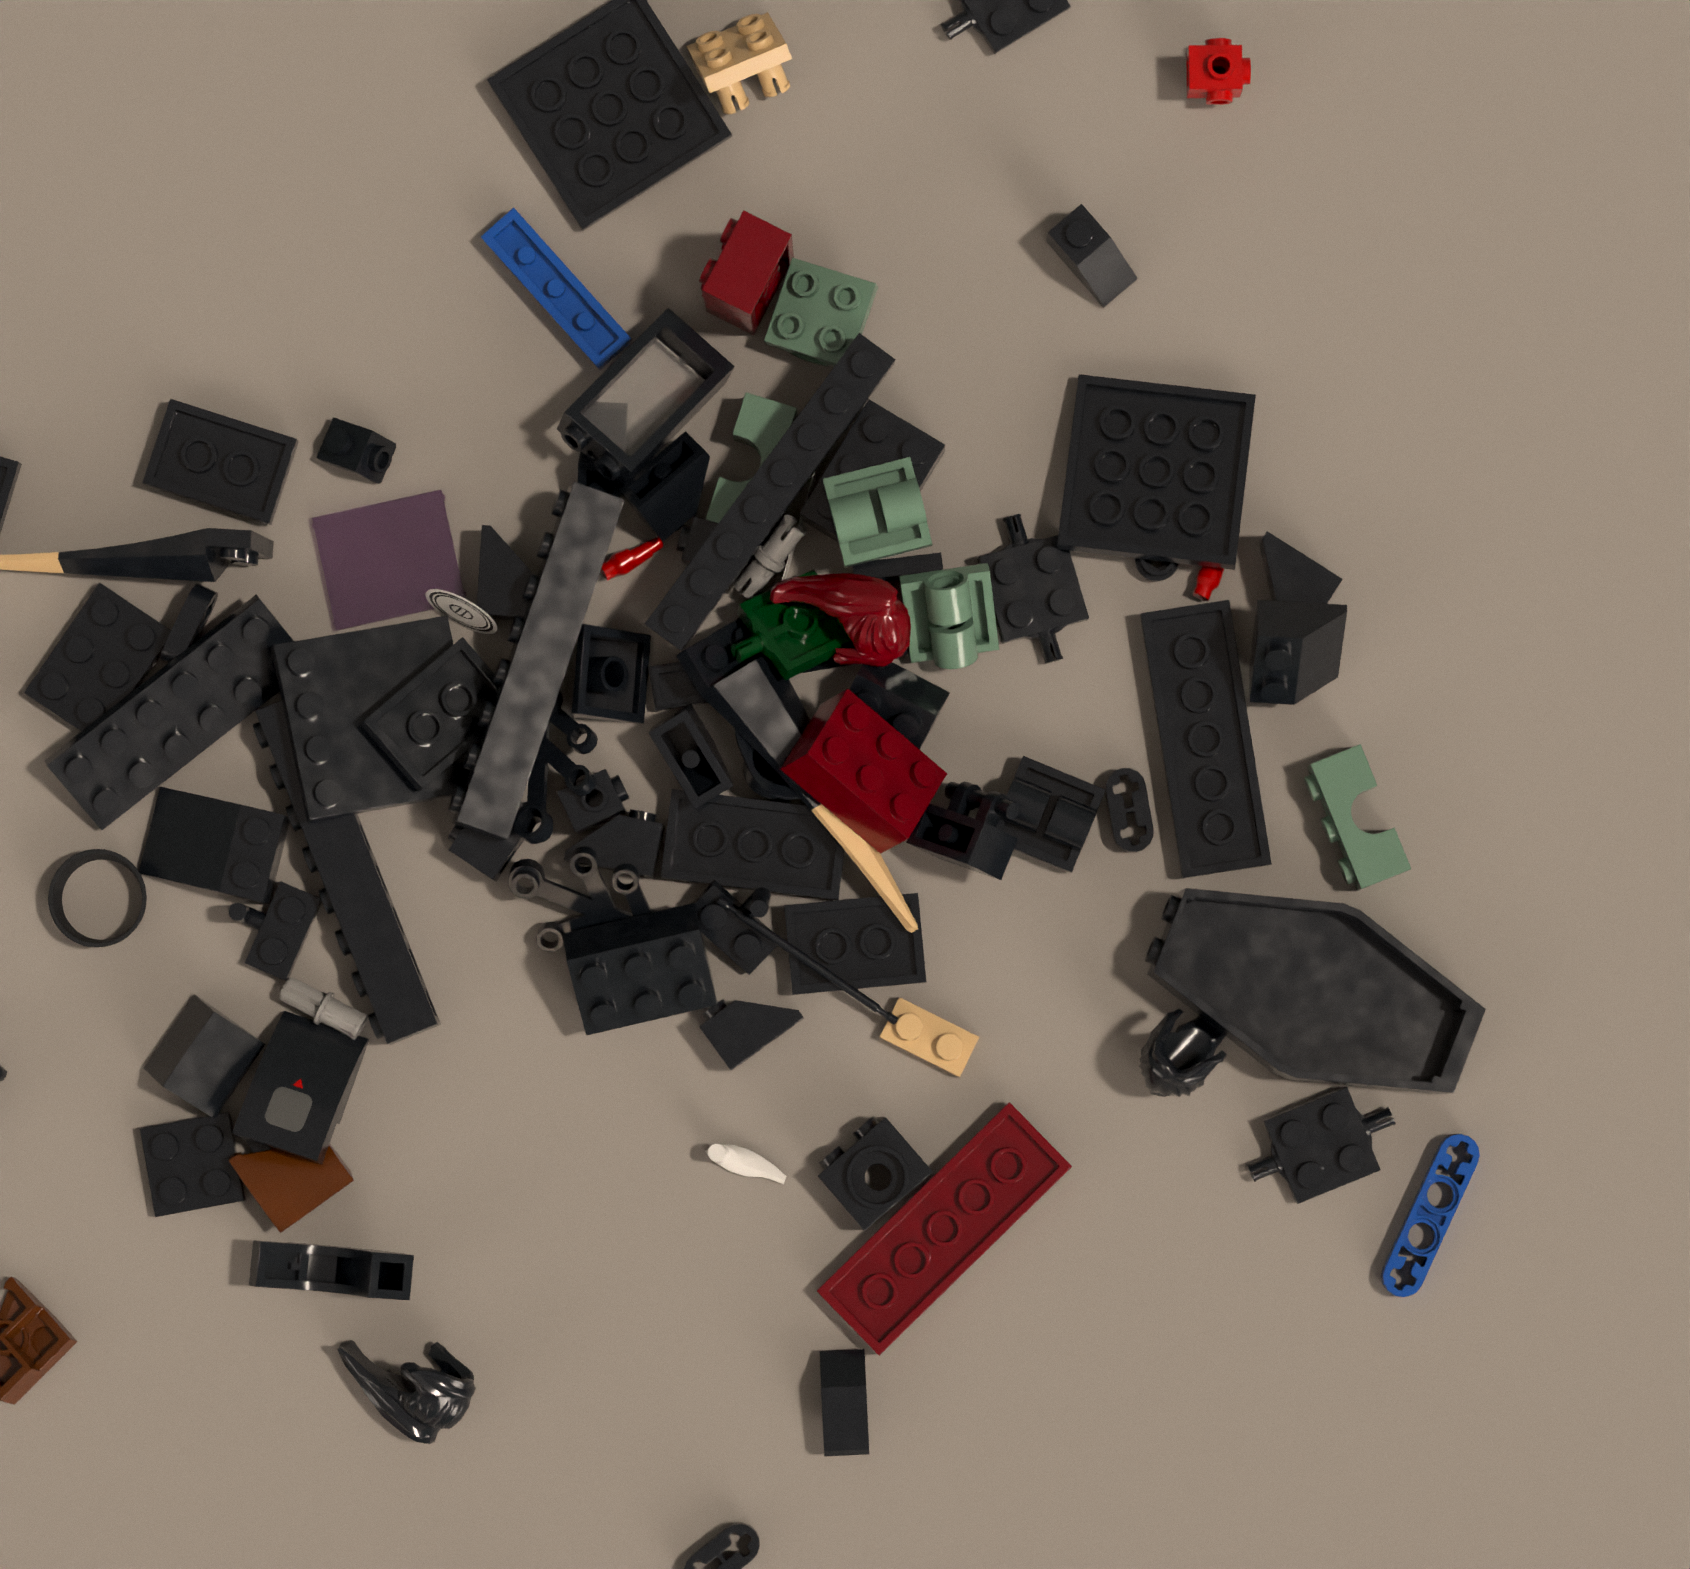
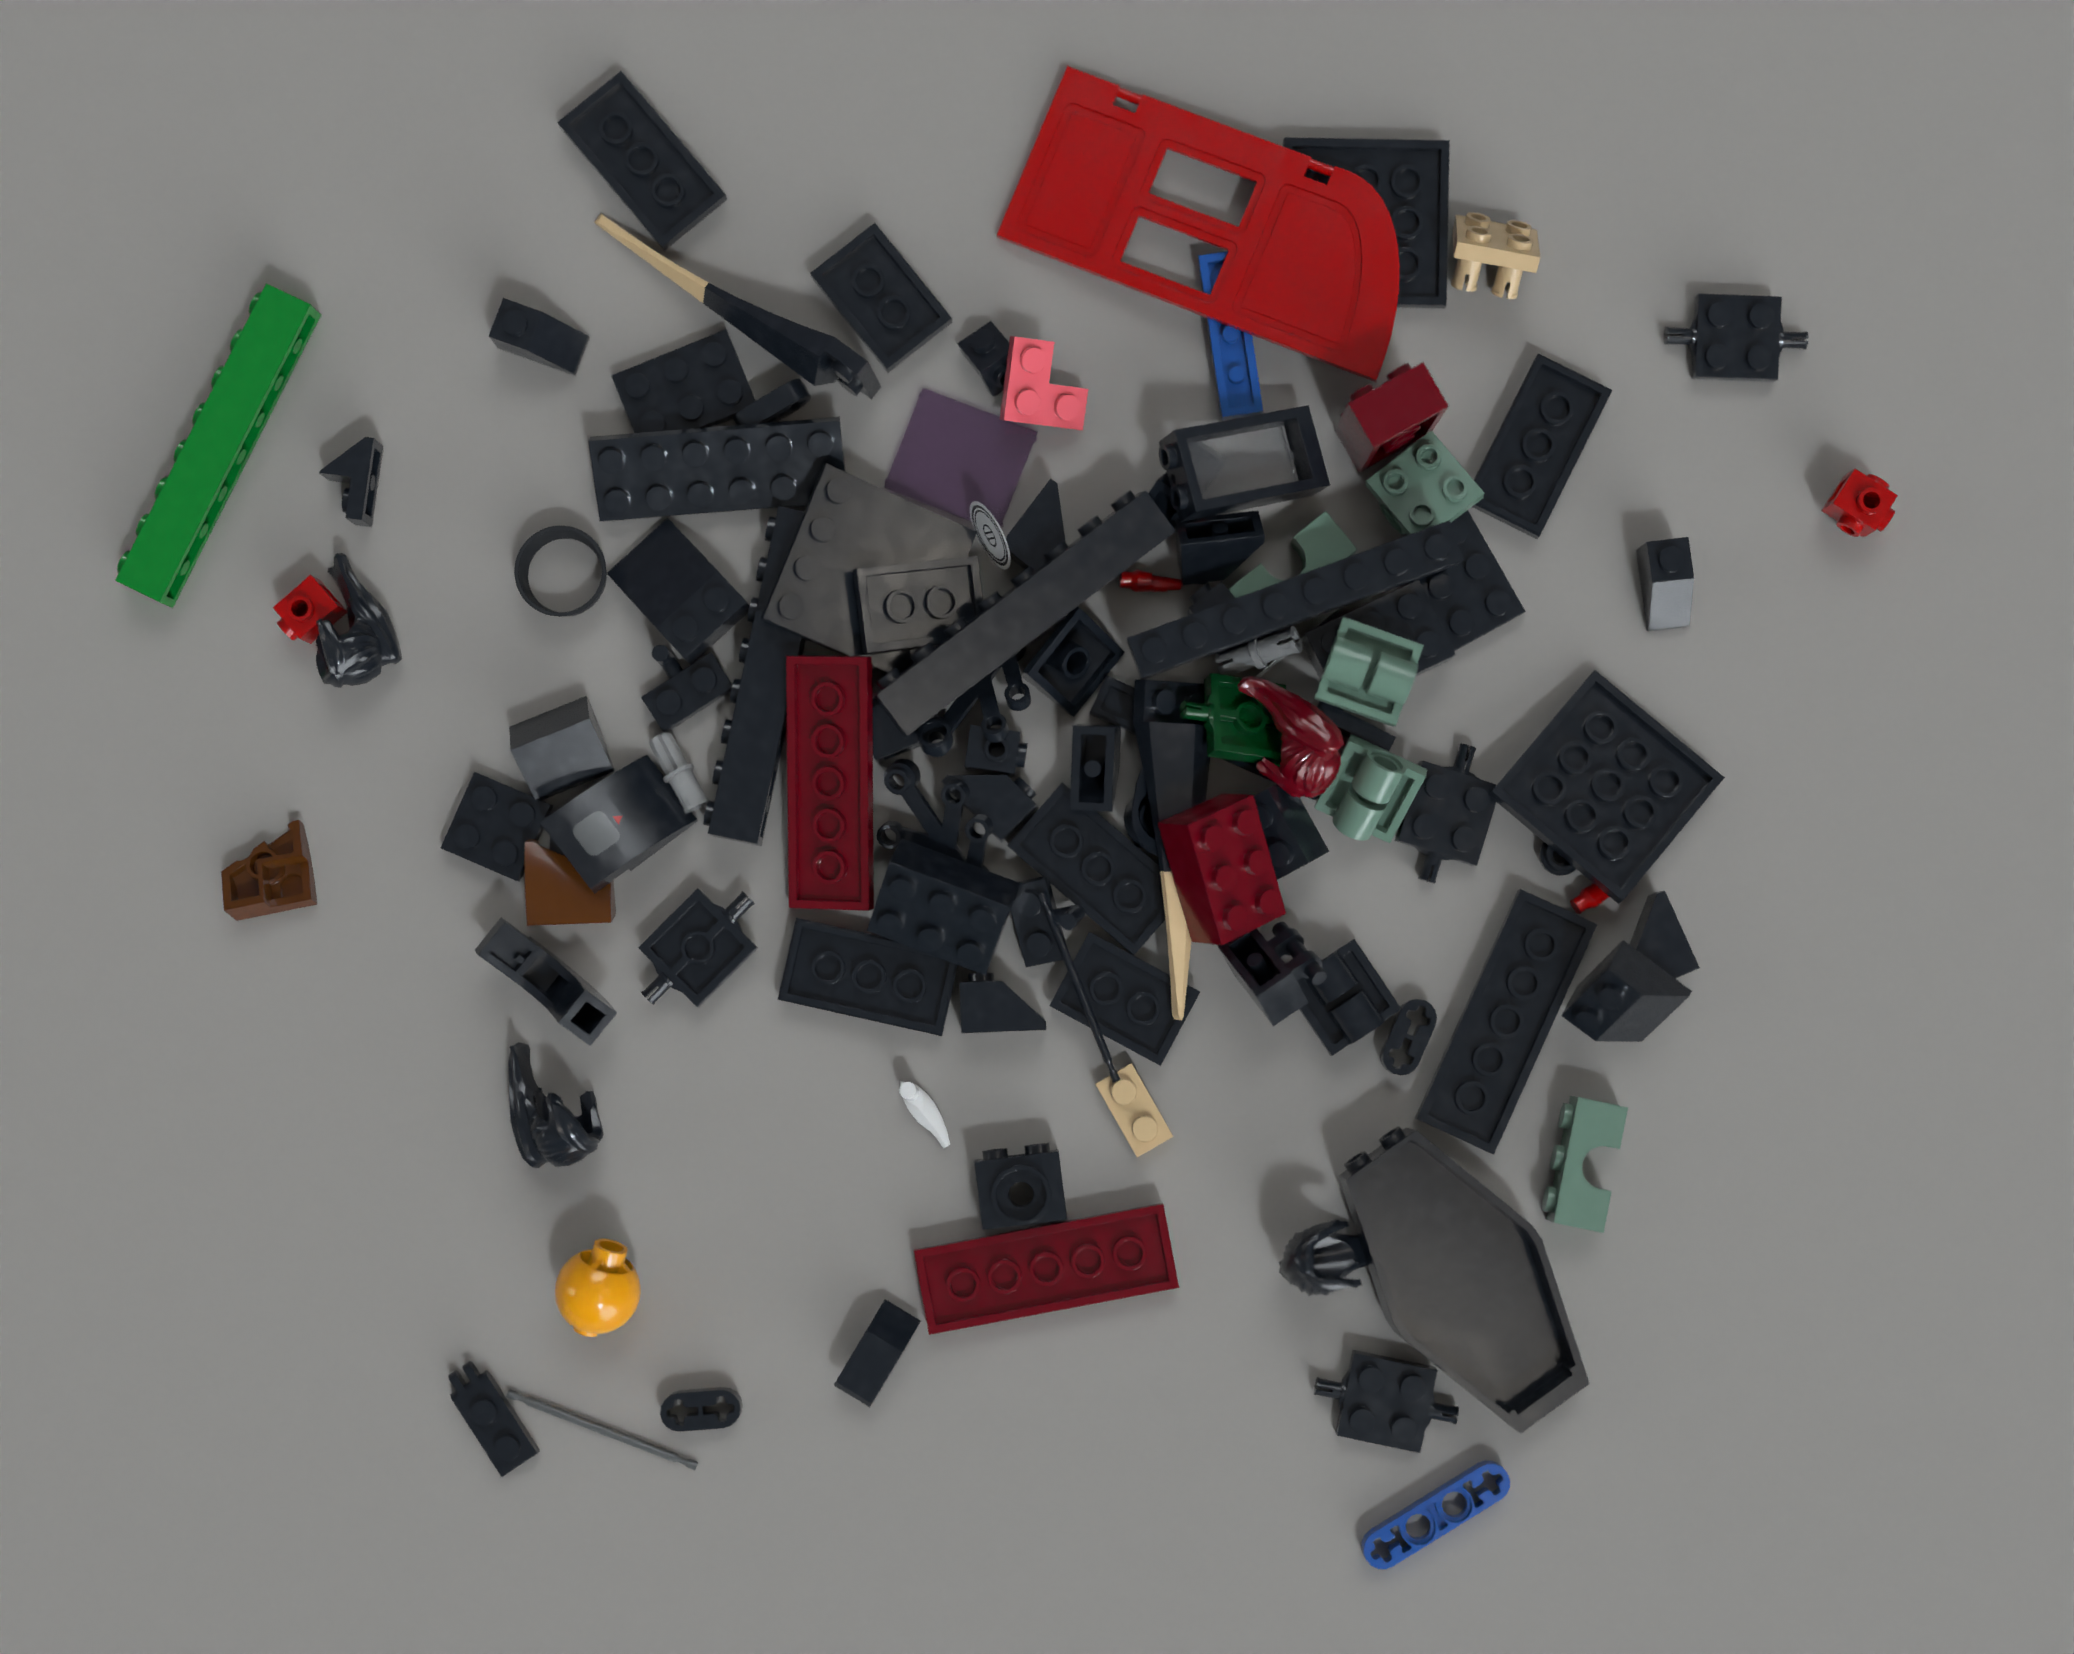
camera: 30 degrees right, 0 degrees up
(417, 463) = (1027, 389): none -> coral plate
(445, 1151) = (698, 947): none -> black plate
(466, 926) = (830, 782): none -> dark red plate
(559, 1510) = (598, 1289): none -> light orange brick
(579, 178) = (1301, 269): none -> red door
(614, 1077) = (867, 977): none -> black plate
(897, 206) = (1539, 445): none -> black plate
(927, 376) = (1473, 594): none -> black plate

